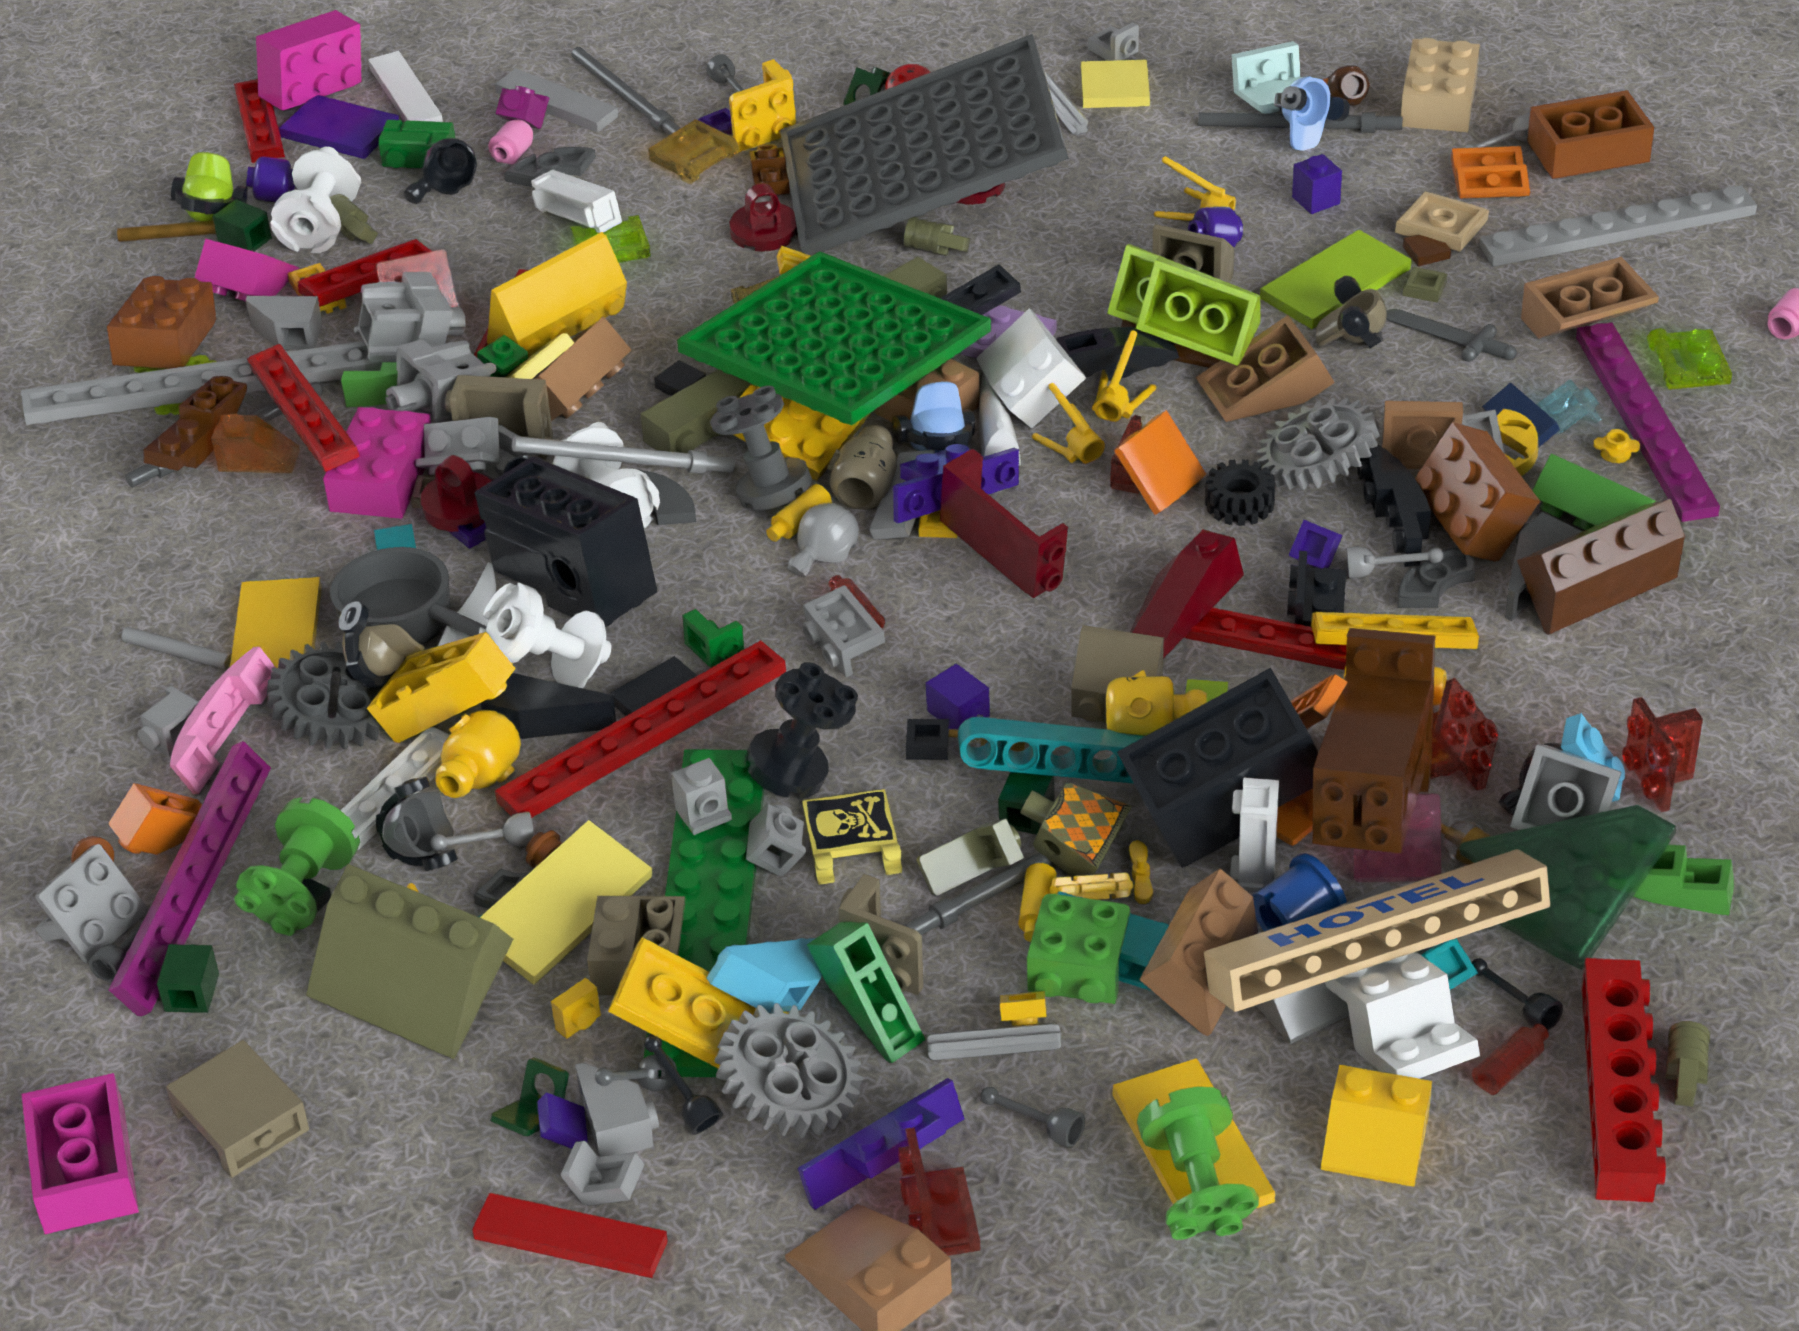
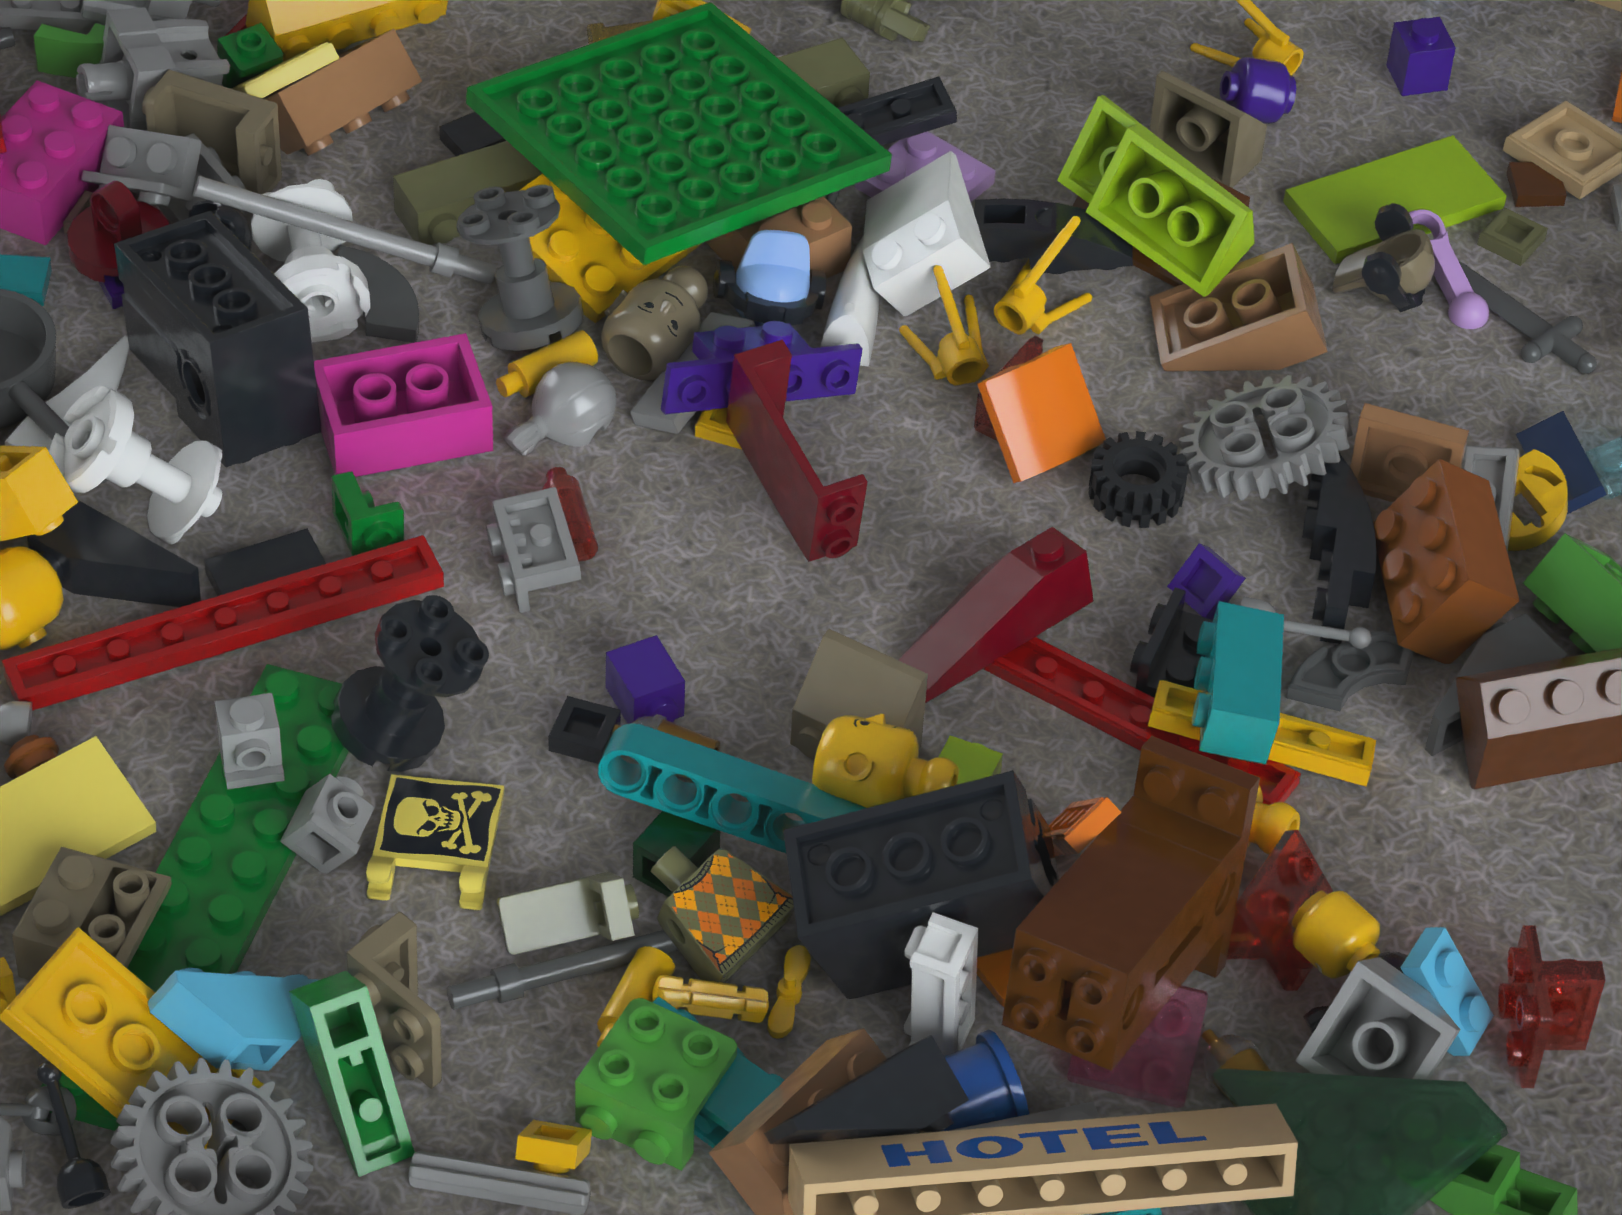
camera: 10 degrees right, 5 degrees up
(713, 559) = (403, 406): none -> dark pink brick
(1261, 904) = (895, 1097): none -> black slope
(1371, 591) = (1239, 682): none -> teal brick
(1411, 334) = (1465, 307): none -> lavender piece
(1505, 738) = (1335, 933): none -> yellow head

